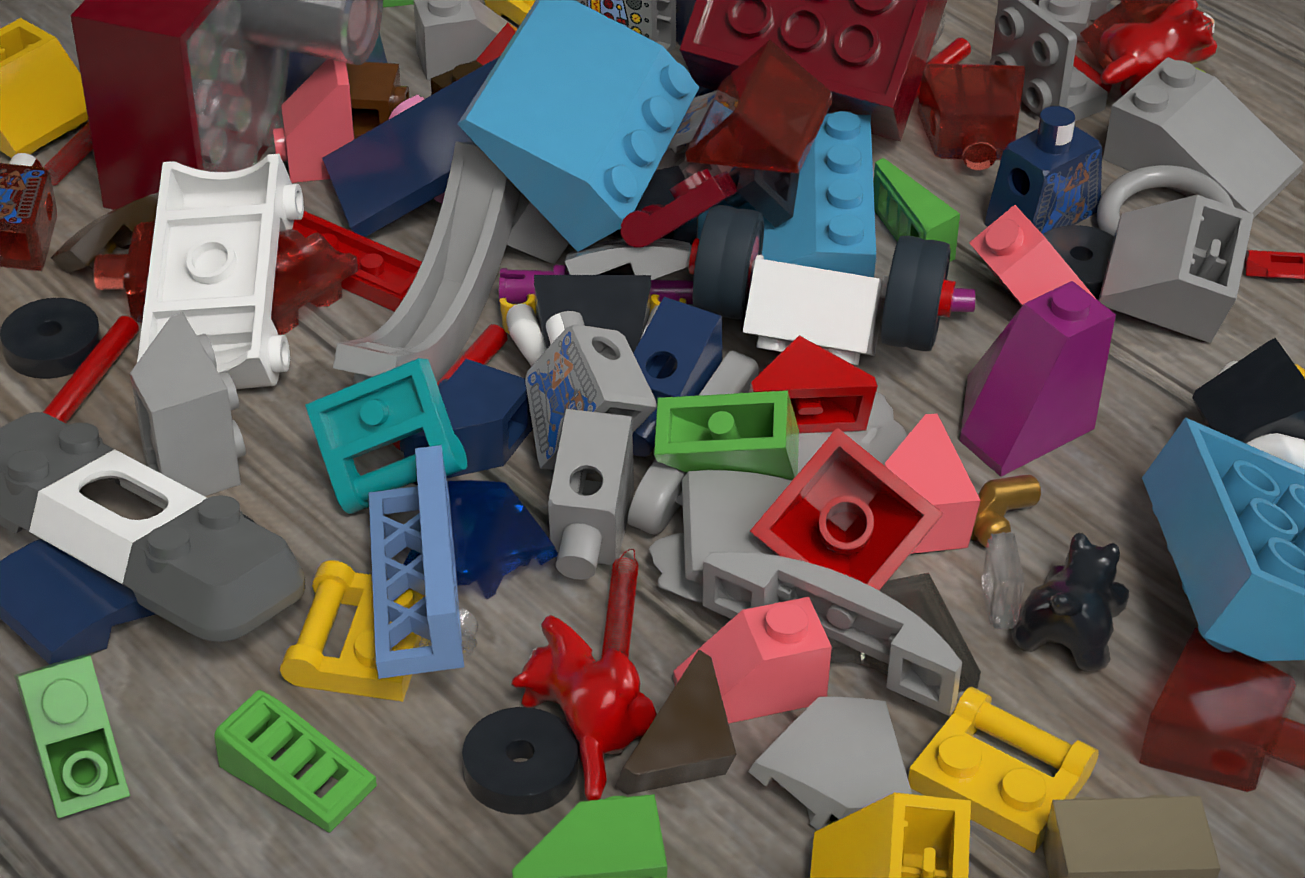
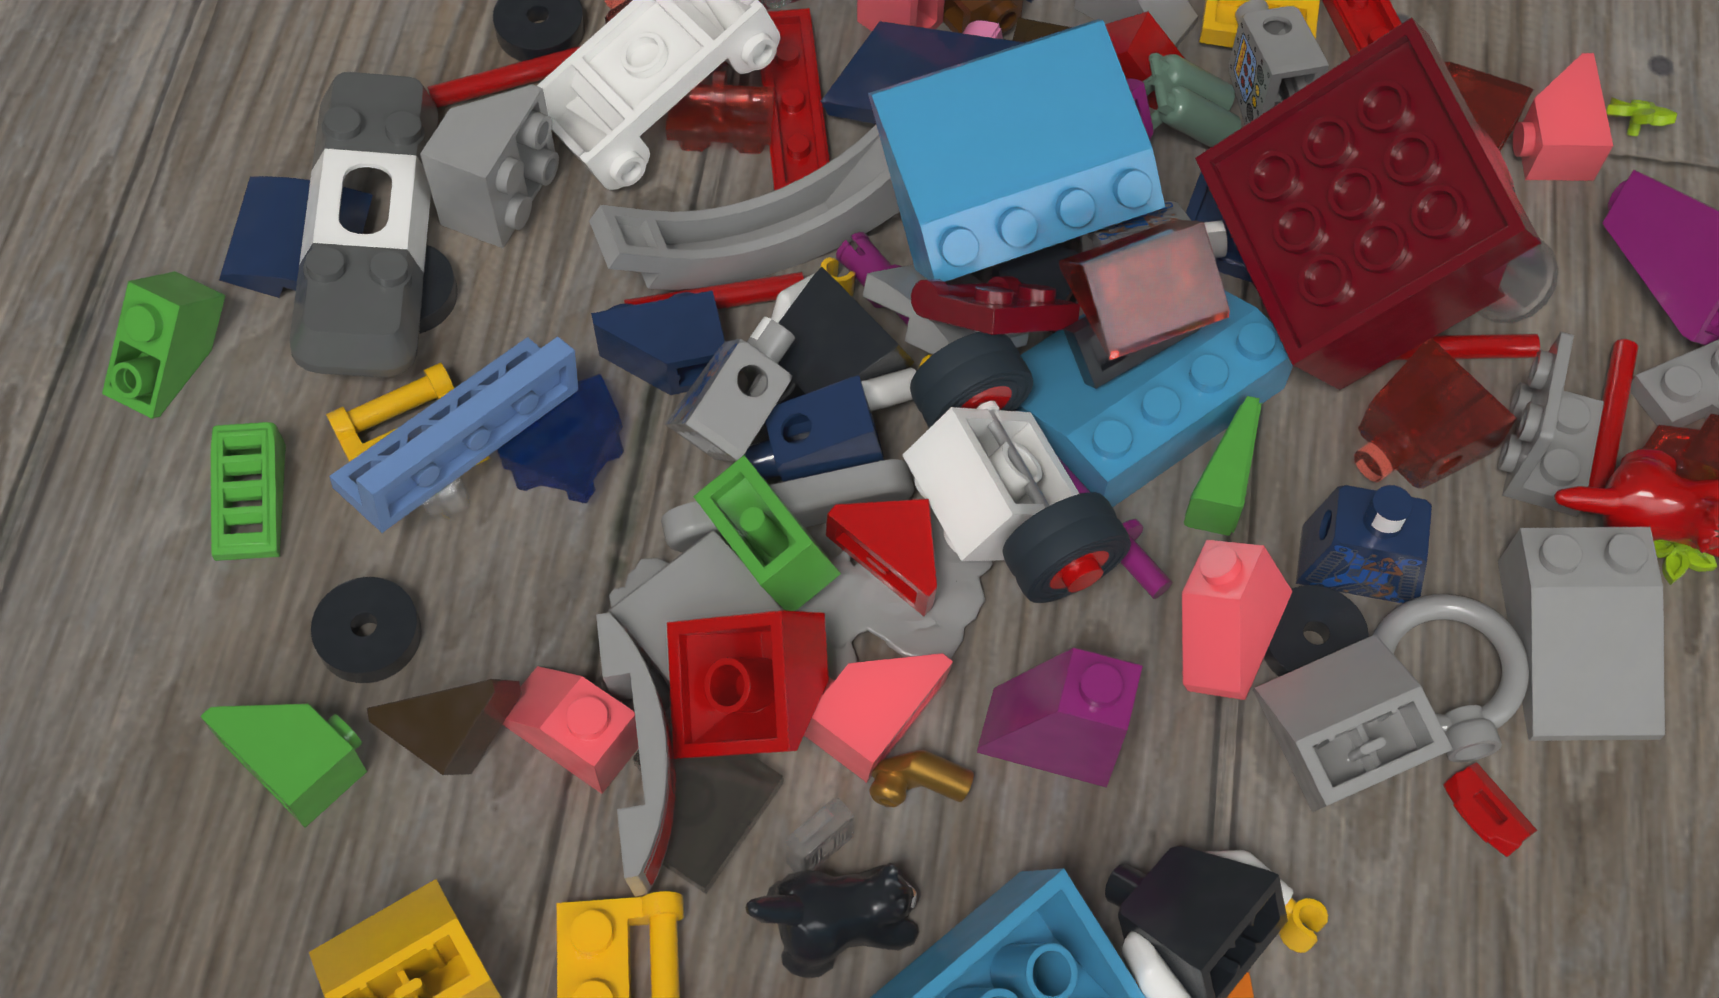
camera: 50 degrees right, 20 degrees up
(377, 415) = (582, 289): teal plate -> none
(584, 514) = (636, 481): light grey torso -> none
(596, 697) = (440, 640): red animal -> none
(631, 604) = (560, 591): red piece -> none
(836, 758) = (526, 850): light grey slope -> none

